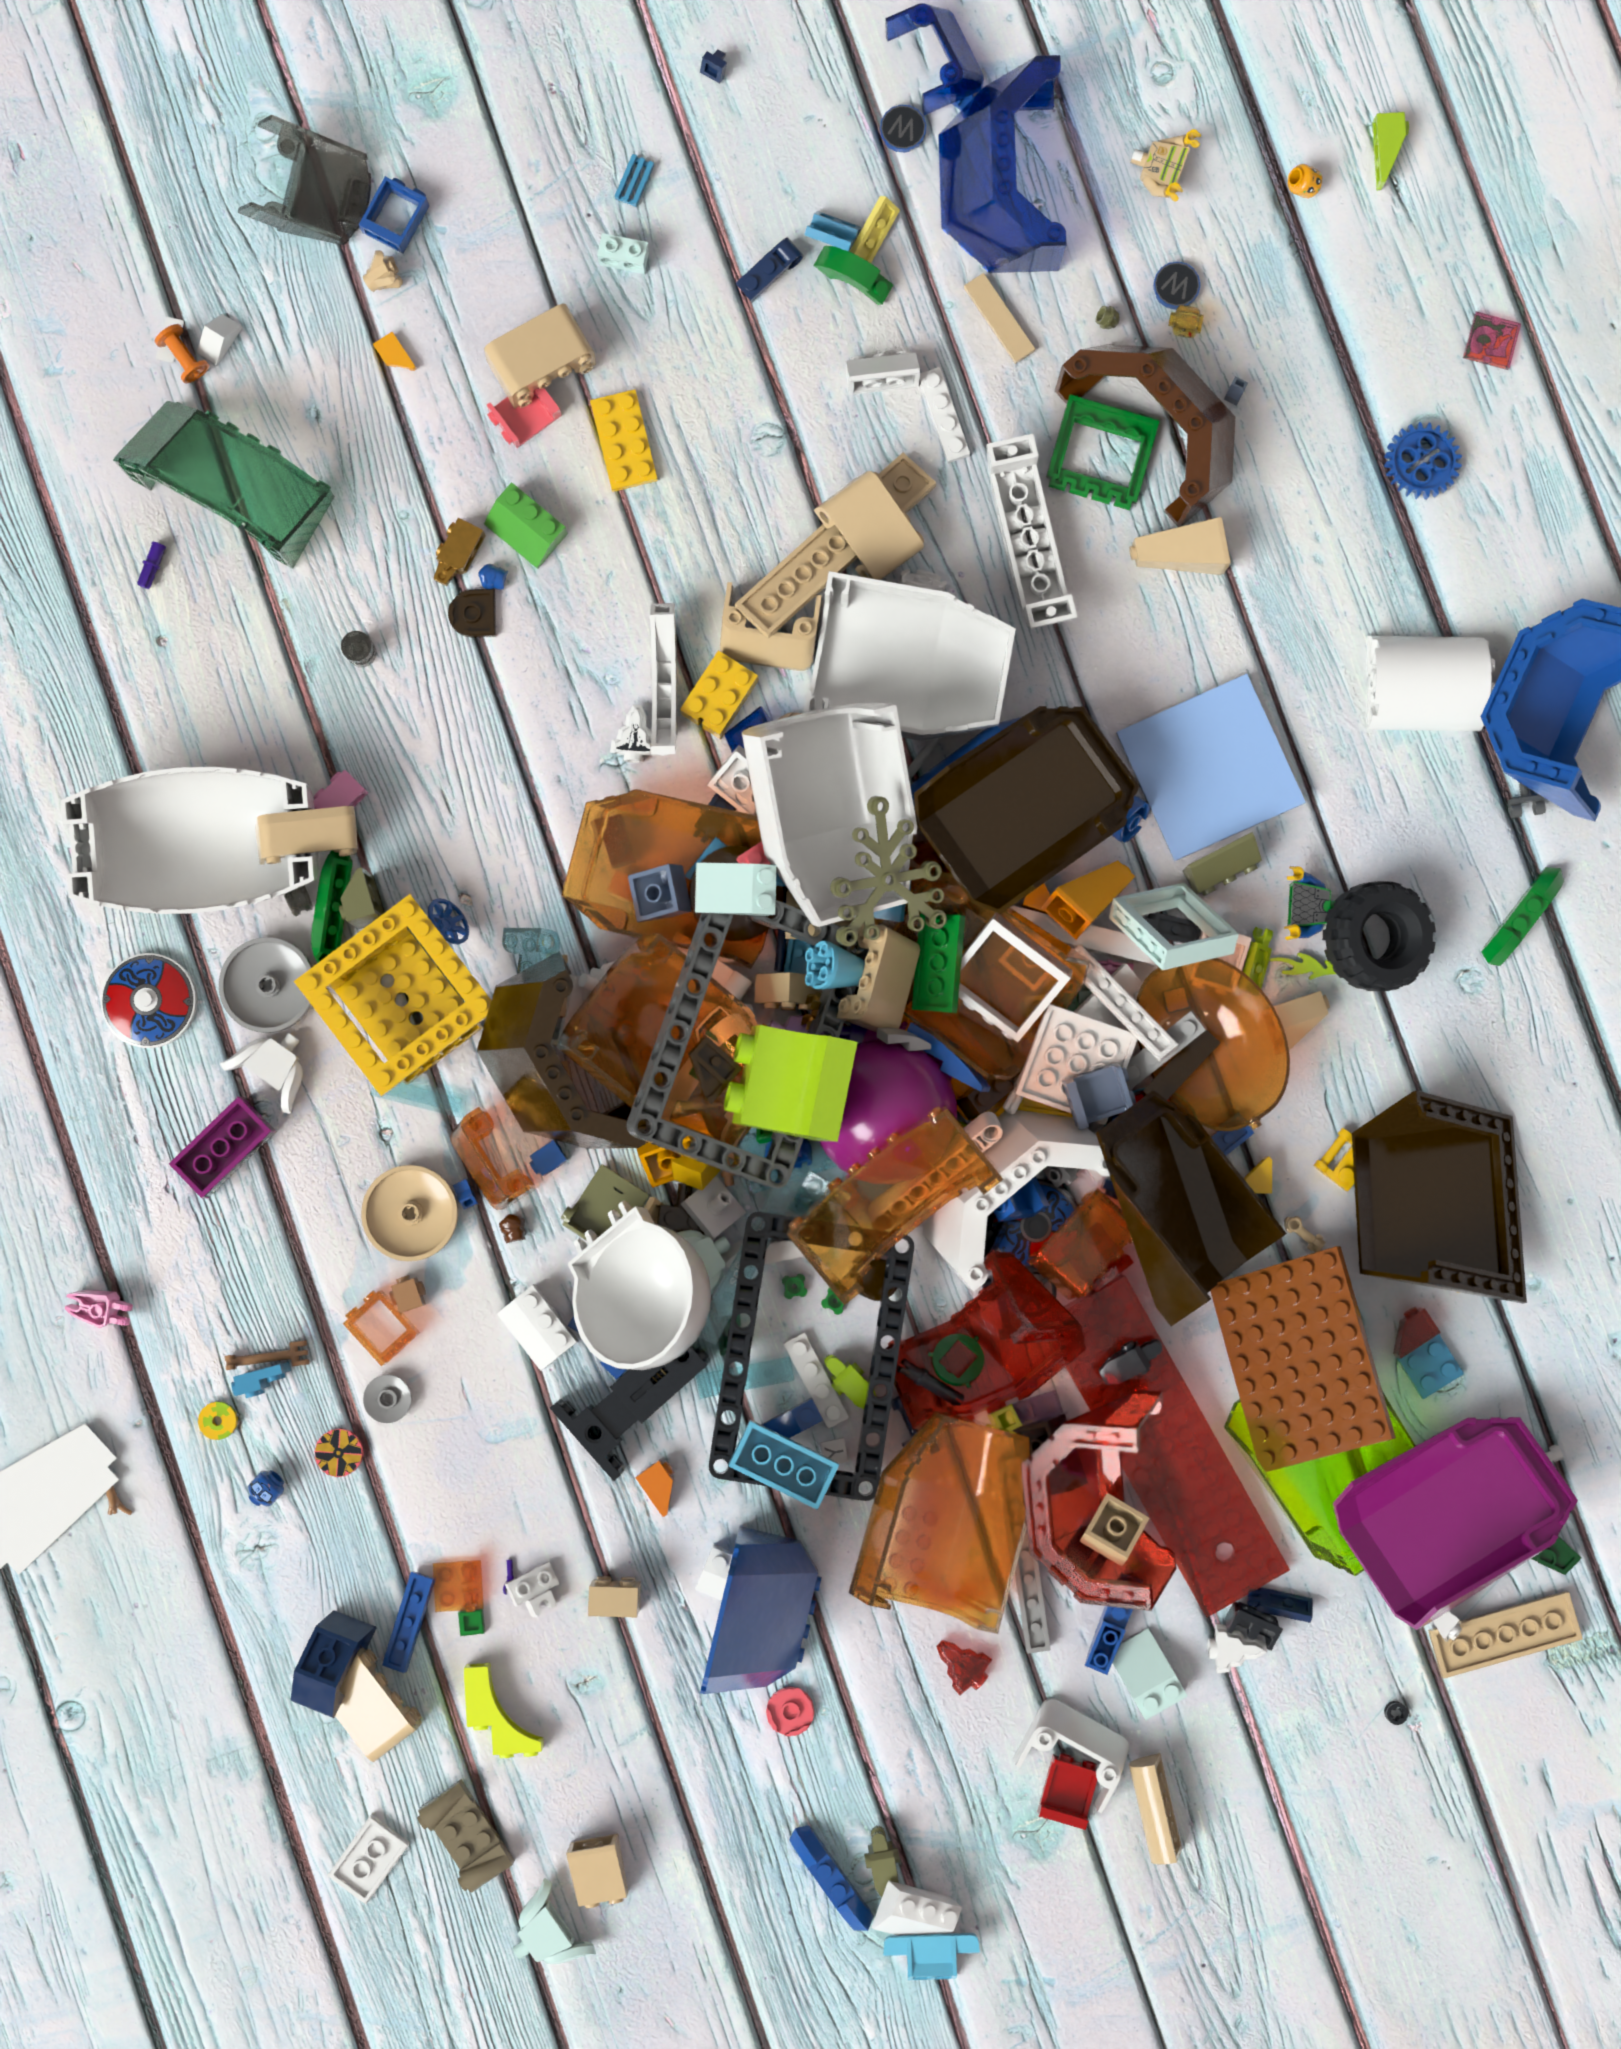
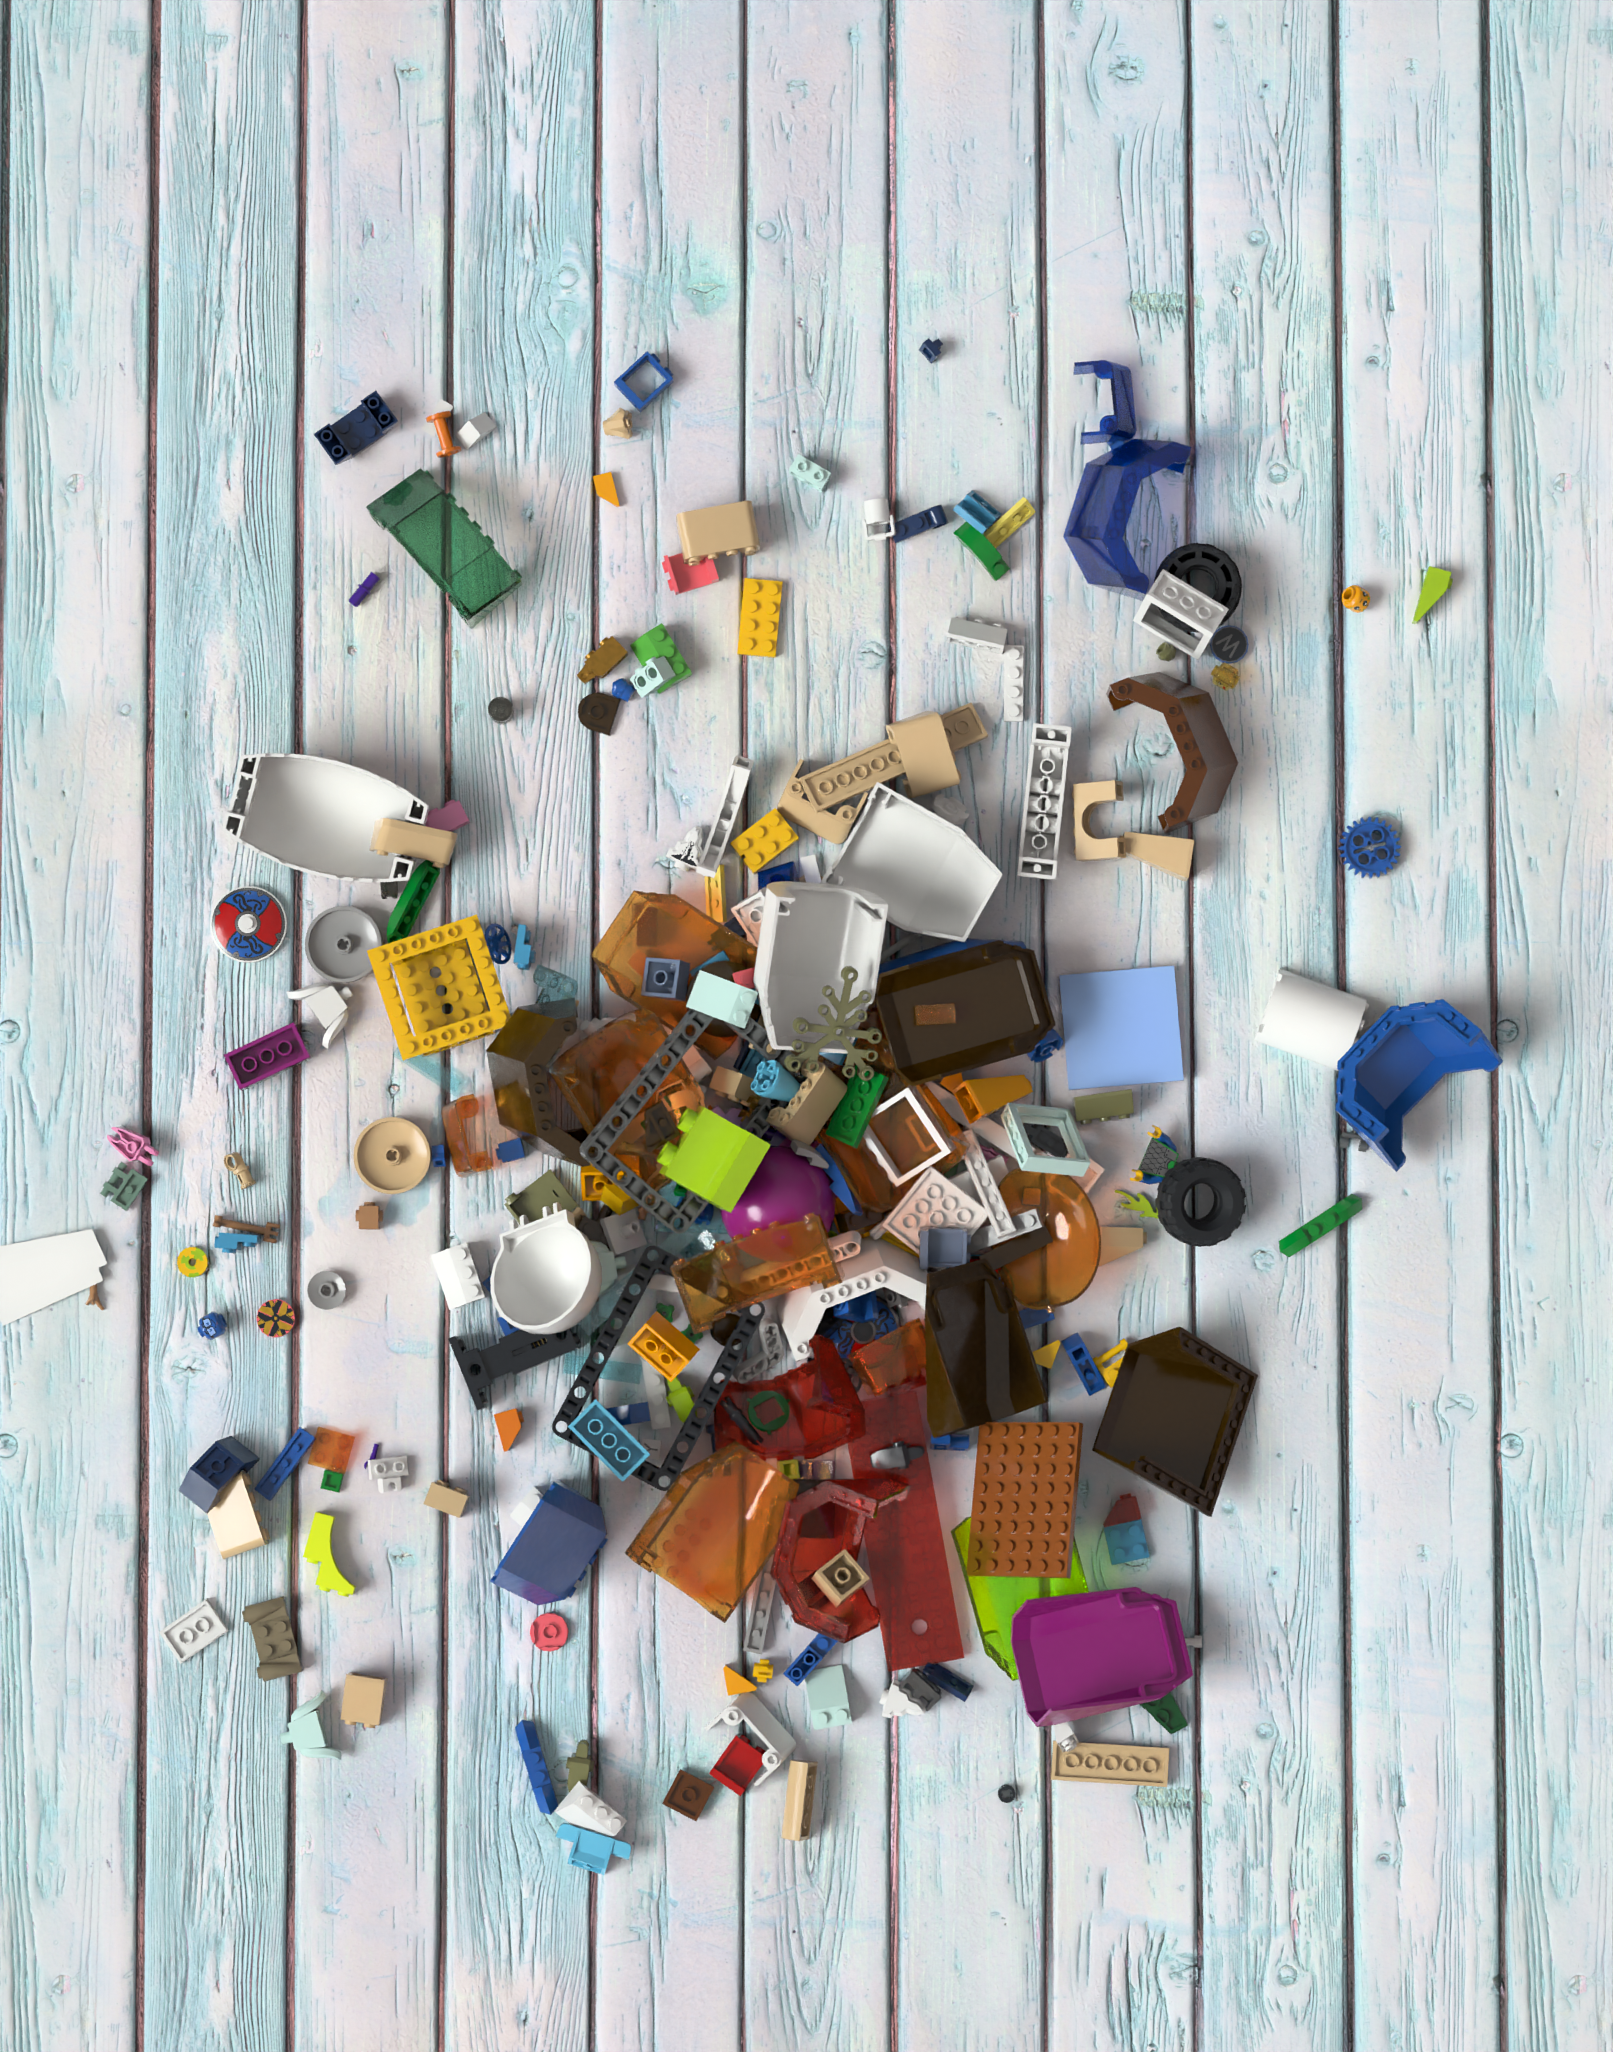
camera: 20 degrees right, 0 degrees up
(80, 382) = (357, 429): none -> dark blue slope
(112, 1361) = (128, 1190): none -> sand green plate
(235, 1292) = (239, 1169): none -> tan connector
(325, 186) = (596, 343): clear smoke windscreen -> none
(355, 1314) = (339, 1211): clear orange window -> none
(361, 900) = (437, 906): olive slope -> none
(482, 920) = (524, 954): none -> dark azure plate
(513, 1228) = (465, 1194): reddish brown arm -> none
(521, 547) = (652, 676): none -> light aqua brick
(641, 162) = (831, 414): dark azure tile -> none
(684, 775) = (716, 896): none -> plate
(719, 275) = (878, 514): none -> white piece
(782, 705) = (810, 869): none -> white sticker
(809, 1328) = (663, 1346): none -> light orange slope
(903, 128) = (1060, 448): black tile -> none
(935, 1295) = (769, 1356): none -> light grey beam
(964, 1666) = (692, 1643): clear red rock -> none
(995, 820) = (935, 1014): none -> clear orange plate
(999, 318) = (1082, 623): tan tile -> none
(1022, 1848) = (688, 1795): none -> reddish brown plate
(1033, 1694) = (737, 1683): none -> light orange slope
(1059, 1669) = (763, 1670): none -> yellow gear
(1076, 515) = (1086, 799): none -> tan arch
(1108, 420) = (1141, 734): green hinge -> none
(1112, 260) = (1213, 561): none -> black tyre
(1119, 242) = (1185, 604): none -> white windscreen
(1165, 163) = (1252, 548): torso -> none
(1195, 1319) = (950, 1442): none -> blue brick
(1235, 390) = (1245, 743): sand blue piece -> none
(1258, 955) = (1105, 1187): lime plate -> none
(1294, 1224) = (1060, 1398): tan bar -> none
(1305, 1173) = (1083, 1364): none -> blue slope
(1491, 340) = (1458, 772): clear pink tile -> none

